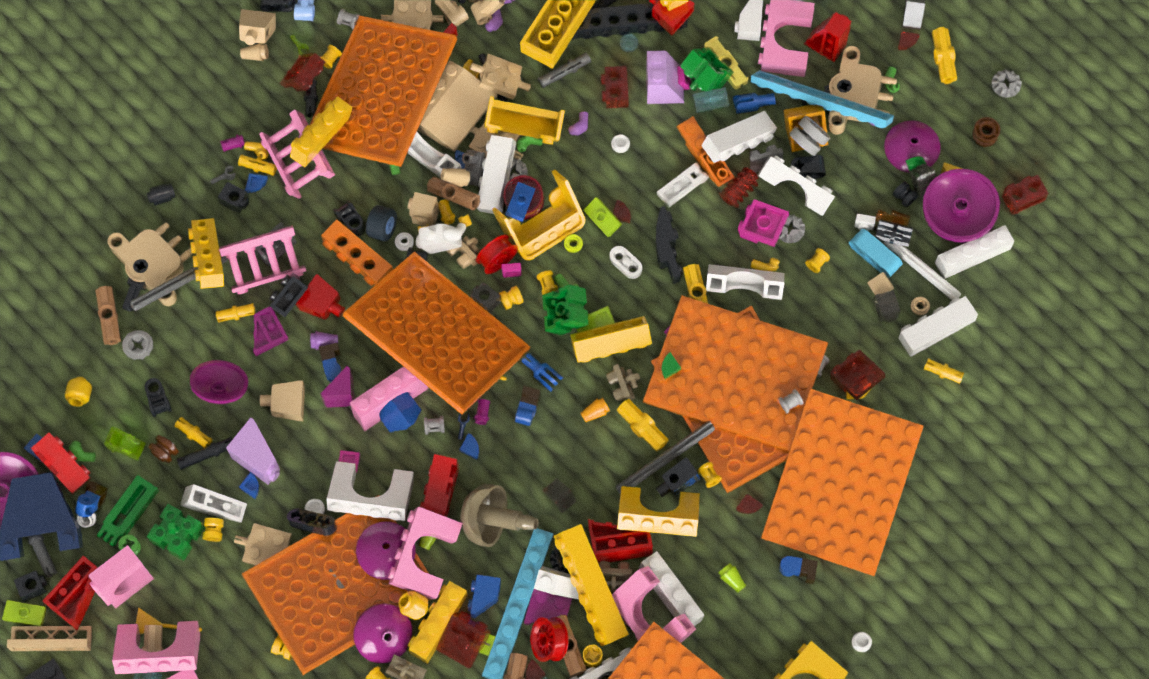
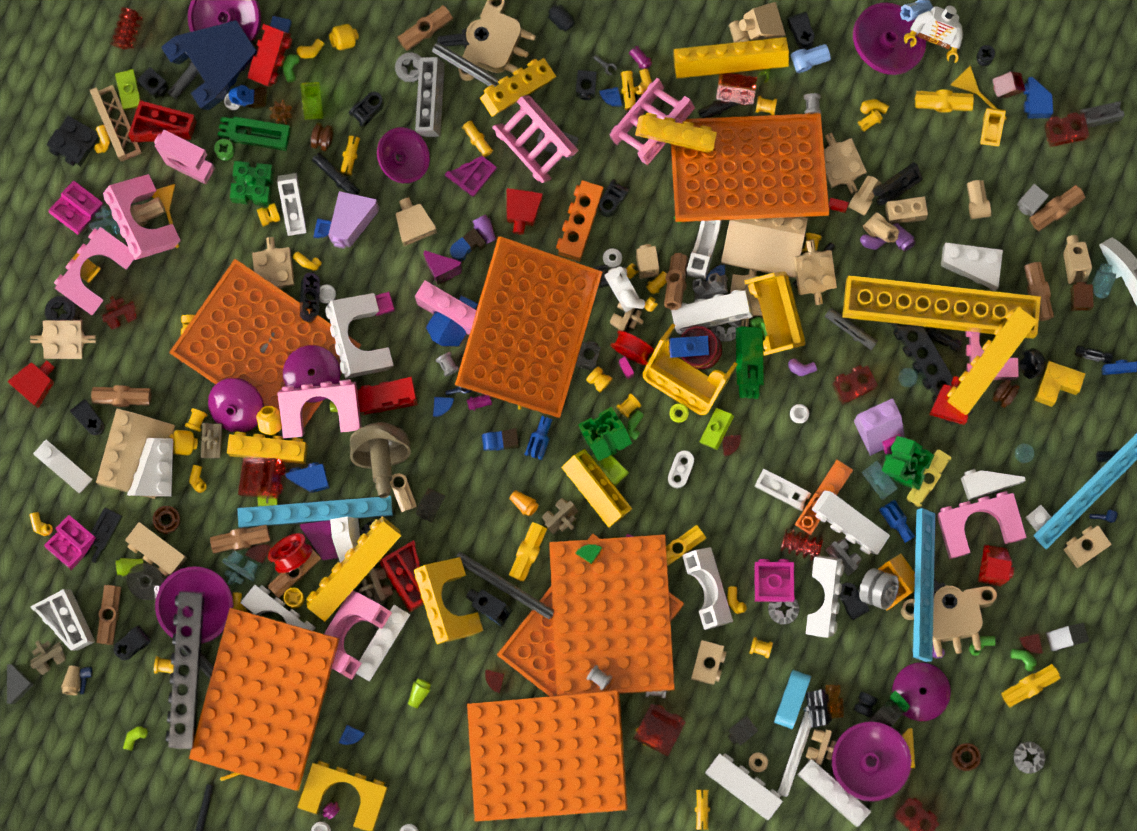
camera: 70 degrees right, 10 degrees up
(63, 656) = (104, 141): none -> yellow arm
(75, 429) = (310, 51): none -> yellow arm
(123, 474) = (283, 116): none -> clear orange gear
(175, 336) = (430, 97): none -> light grey brick
(272, 66) = (731, 57): none -> yellow brick
(280, 509) = (305, 262): none -> yellow arm
(288, 294) = (511, 178): black brick -> none
(381, 223) = (618, 229): black wheel -> none
(456, 176) = (689, 276): tan cone -> none
(544, 514) = (403, 494): none -> tan piece
(547, 160) = (749, 352): none -> green hinge
(665, 245) = (720, 495): black slope -> none
(709, 474) = (502, 638): yellow bush -> none
(746, 658) = (351, 736): none -> blue tile
(799, 567) = (454, 750): leg -> none
(816, 320) = (704, 674): none -> tan brick
(864, 222) = (818, 676): white plate -> none
(880, 284) = (762, 717): tan tile -> none
(917, 49) = (1026, 657): none -> bright green arm
(930, 243) = (818, 755): none -> tan hips

